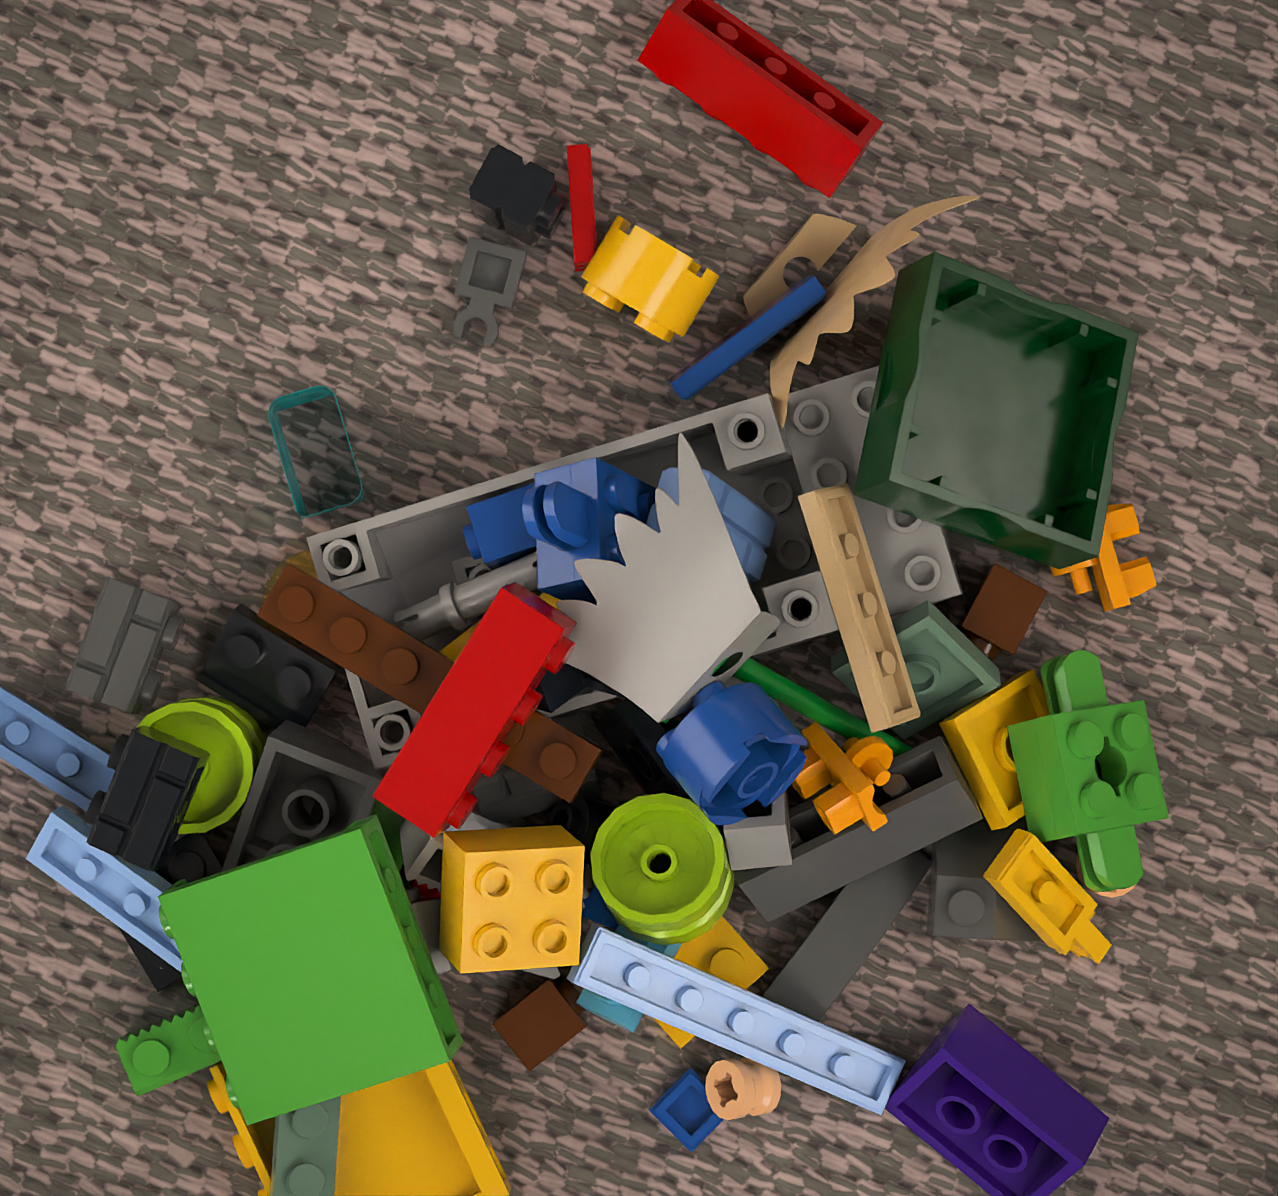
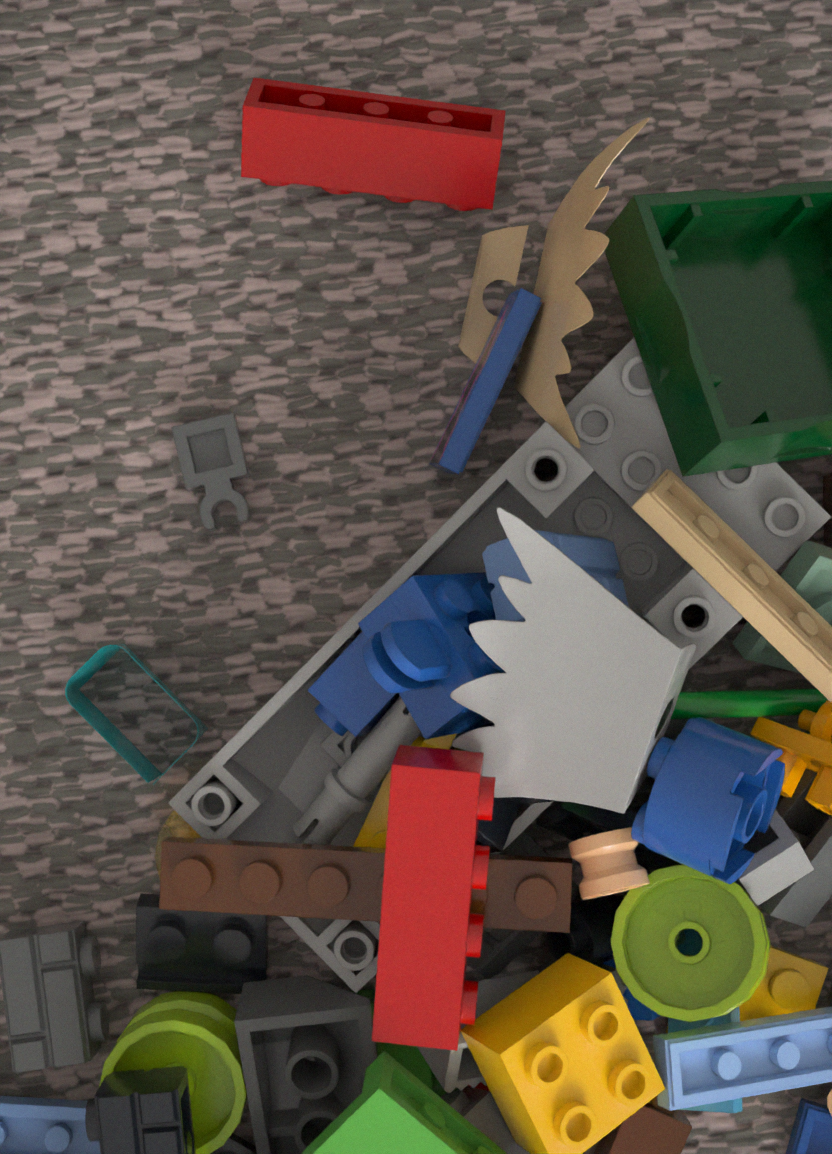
camera: 30 degrees left, 0 degrees up
(516, 196) = (194, 363): black brick -> none
(581, 205) = (263, 342): red tile -> none
(628, 765) = (608, 863): none -> light nougat wheel
(648, 278) = (363, 375): yellow brick -> none

